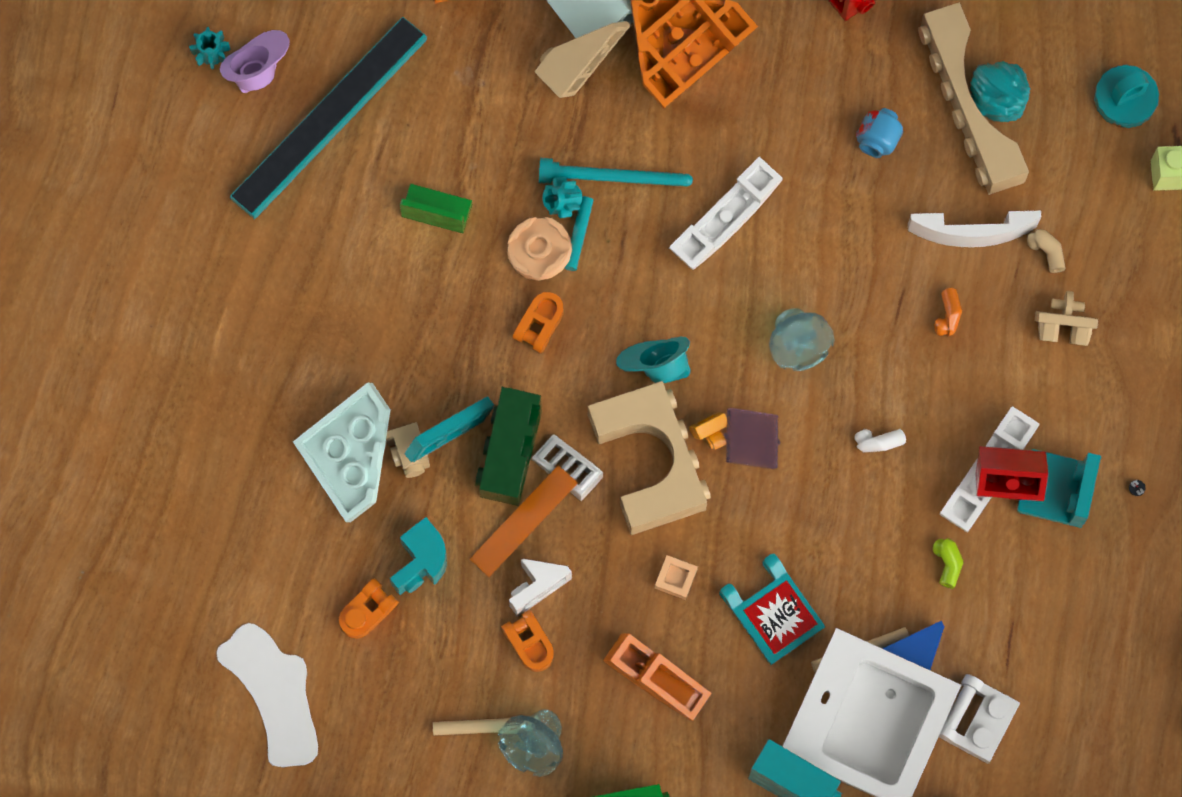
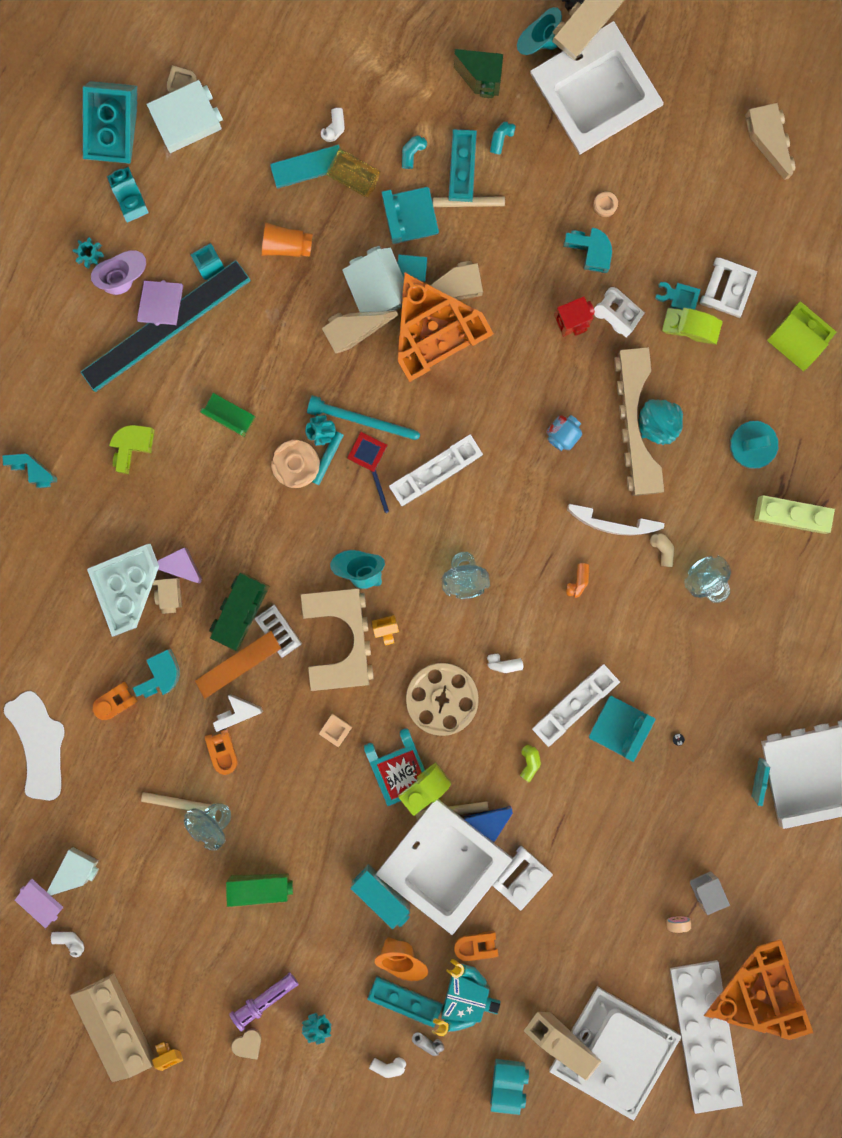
camera: 20 degrees right, 15 degrees up
(204, 335) = (36, 471): none -> teal slope
(314, 264) = (127, 440): none -> lime brick
(316, 88) = (160, 302): none -> lavender piece
(366, 28) = (207, 261): none -> teal slope
(415, 406) = (180, 564): none -> lavender slope
(449, 429) = (198, 590): teal tile -> none
(546, 311) = (290, 513): orange plate -> none
(631, 217) = (368, 453): none -> piece
(657, 676) = (305, 797): orange slope -> none
(752, 438) = (413, 643): piece -> none
(817, 623) = (427, 789): none -> lime brick
(821, 495) = (449, 708): none -> tan wedge
(1011, 473) = (586, 712): red brick -> none
(1080, 326) = (663, 604): tan hips -> none
(1116, 266) = (708, 577): none -> clear light blue tile

